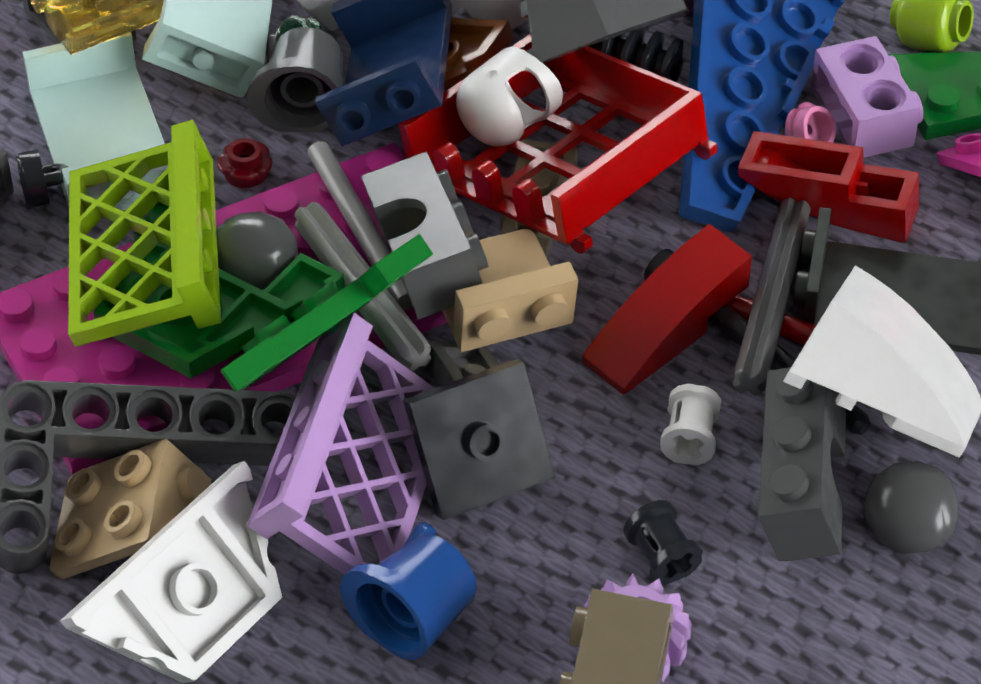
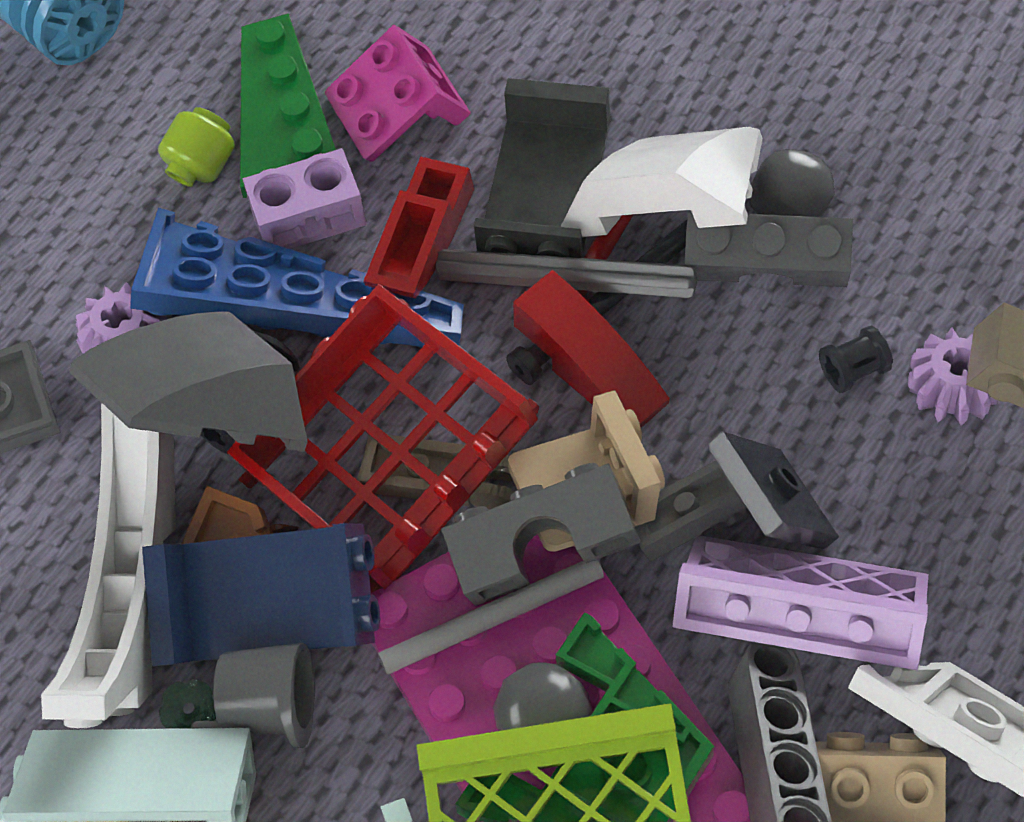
camera: 85 degrees left, 10 degrees up
(245, 163) = (372, 766): dark red plate -> none
(319, 314) = (684, 627): green wing -> none
(383, 312) = (592, 597): light grey axle -> none
(410, 594) = (947, 540): blue hat -> none
(490, 105) = (331, 482): white helmet -> none
(691, 423) = (718, 339): white bush -> none
(811, 123) = (343, 247): bright pink plate -> none

